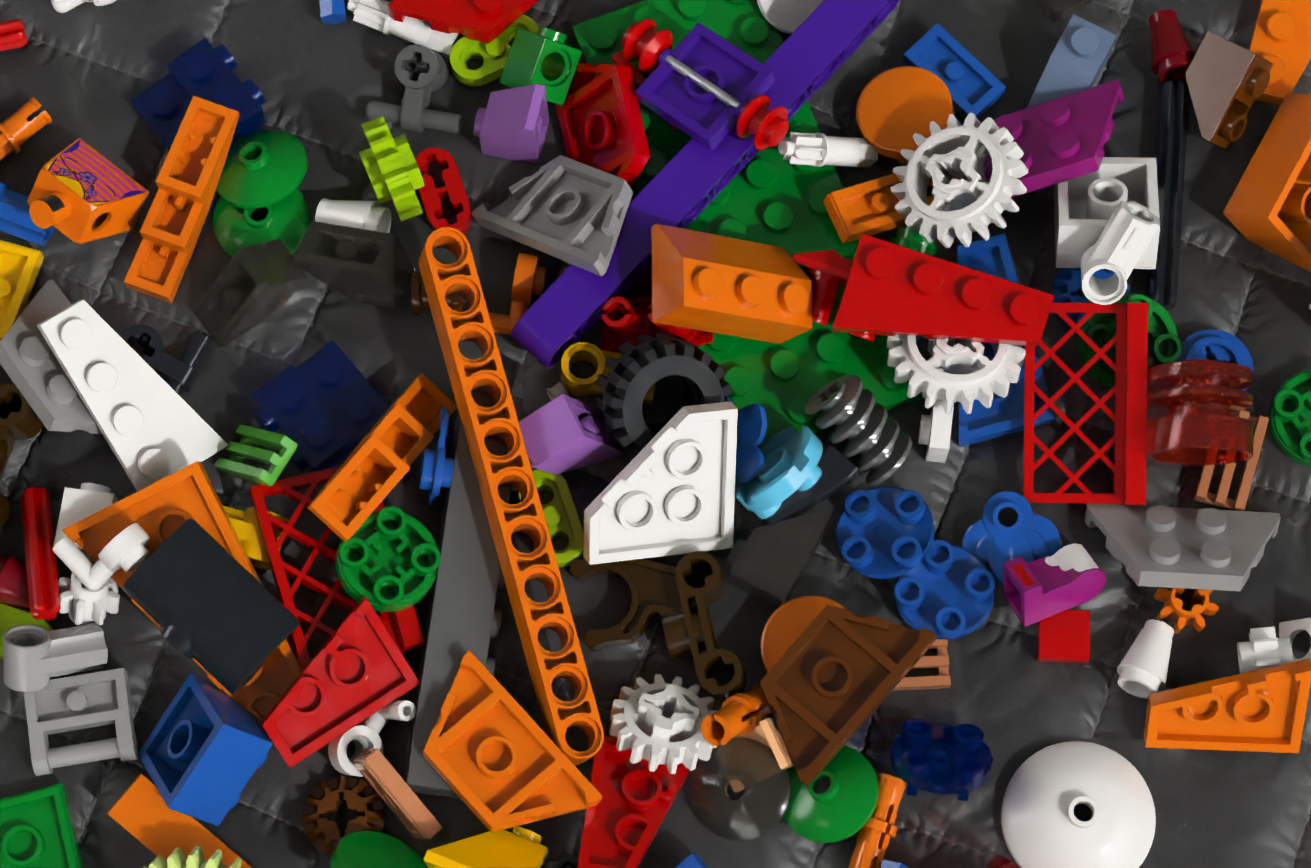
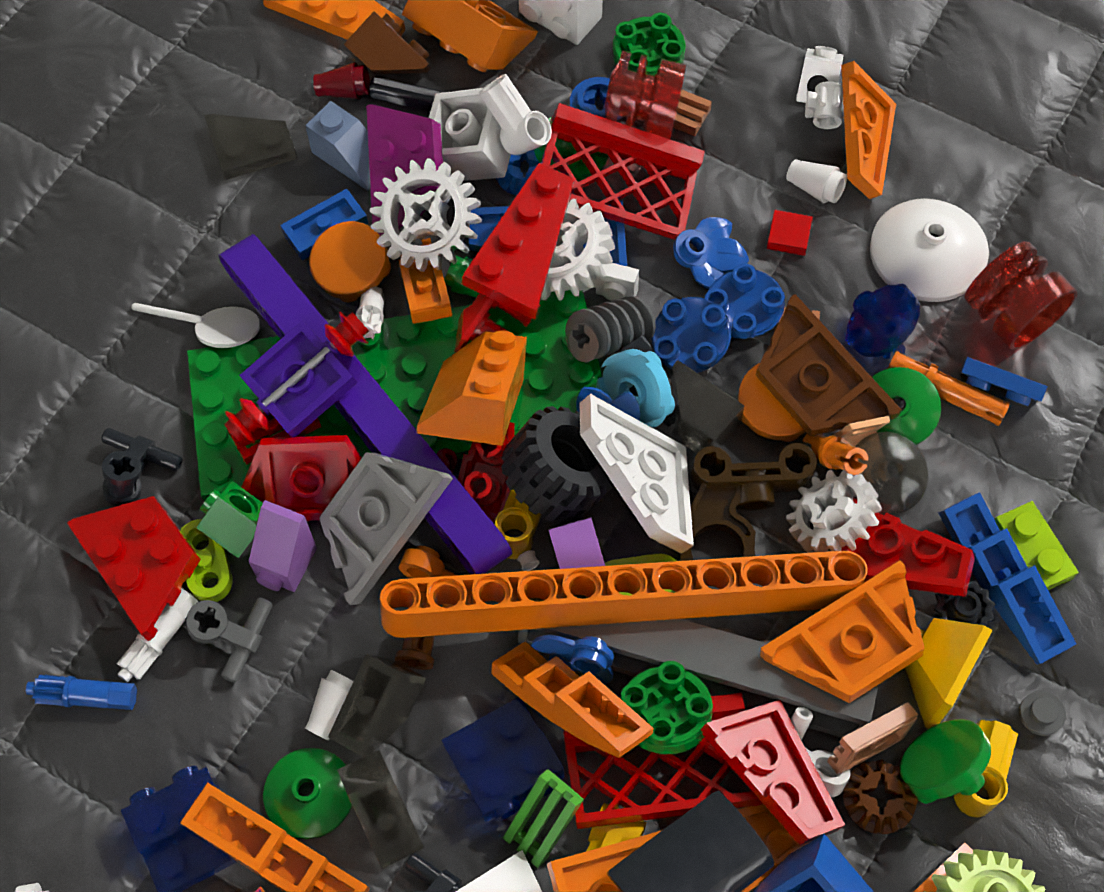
camera: 80 degrees left, 10 degrees down
(262, 169) = (277, 773): green dish -> none
(392, 168) = (298, 654): lime gear -> none
(452, 189) = (326, 636): red beam -> none
(1051, 583) = (751, 225): magenta leg -> none
(1173, 609) = (777, 147): orange gear -> none
(1184, 544) = (736, 137): light grey wing -> none

